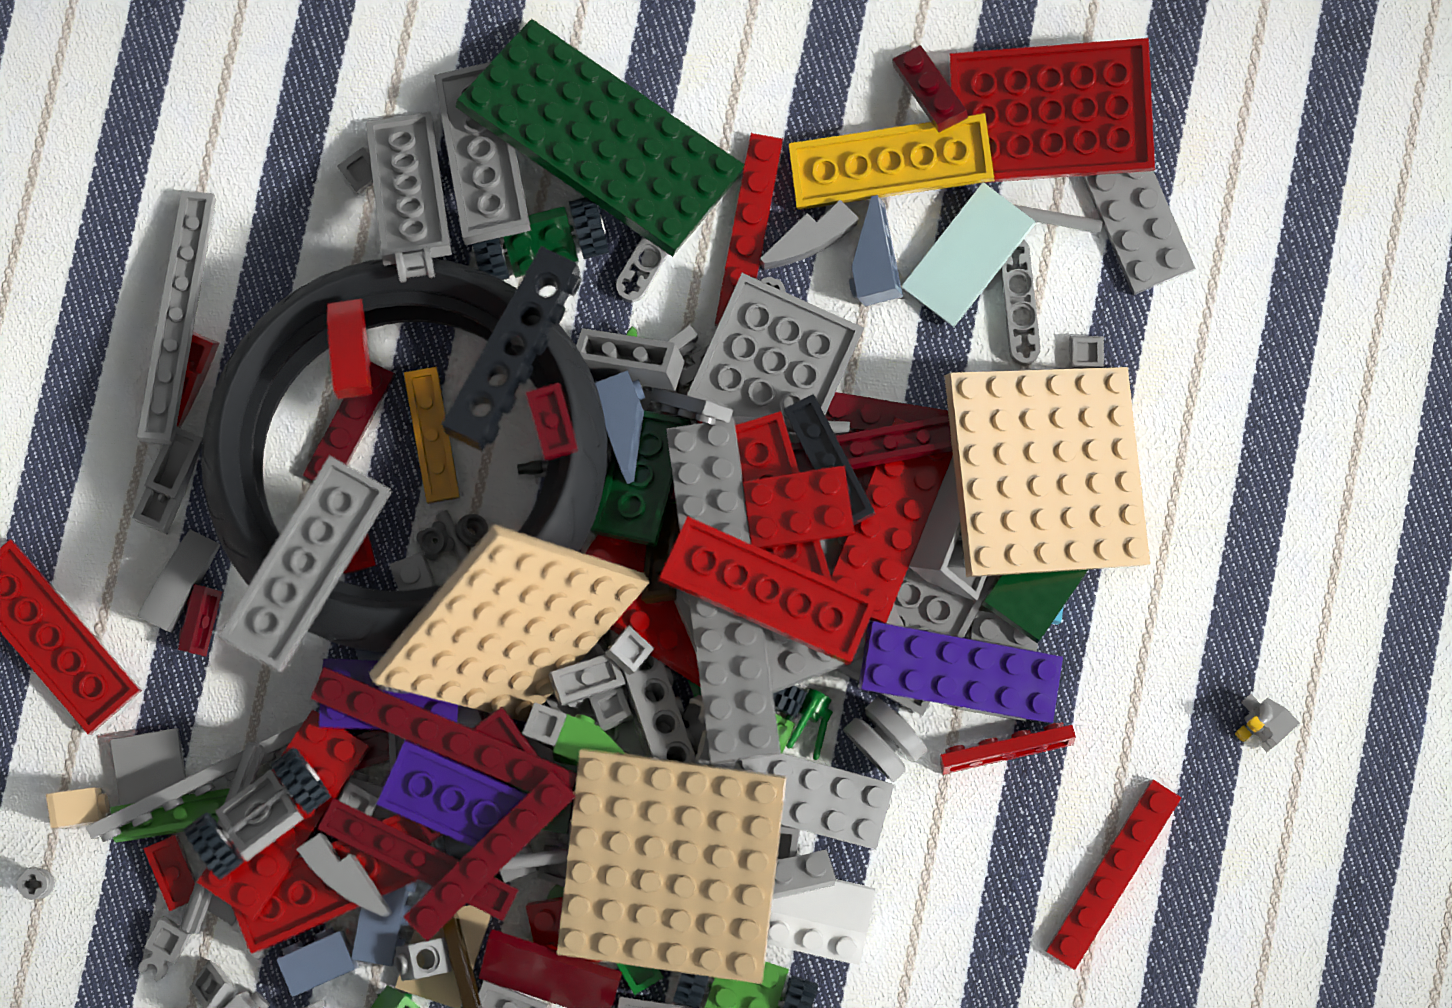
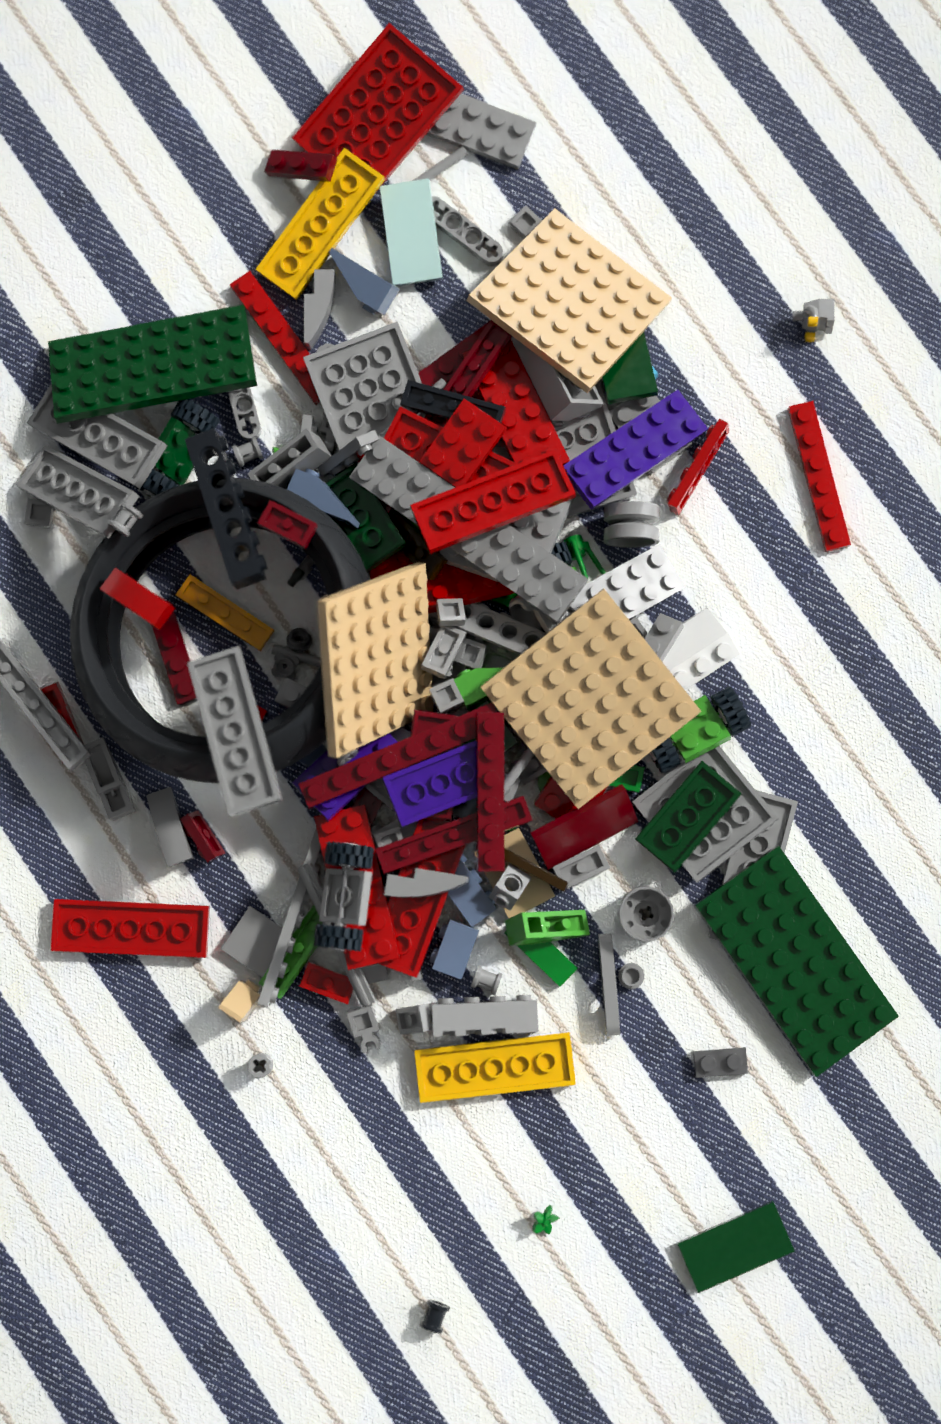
camera: 45 degrees left, 0 degrees up
(605, 307) = (247, 452): none -> light grey bush

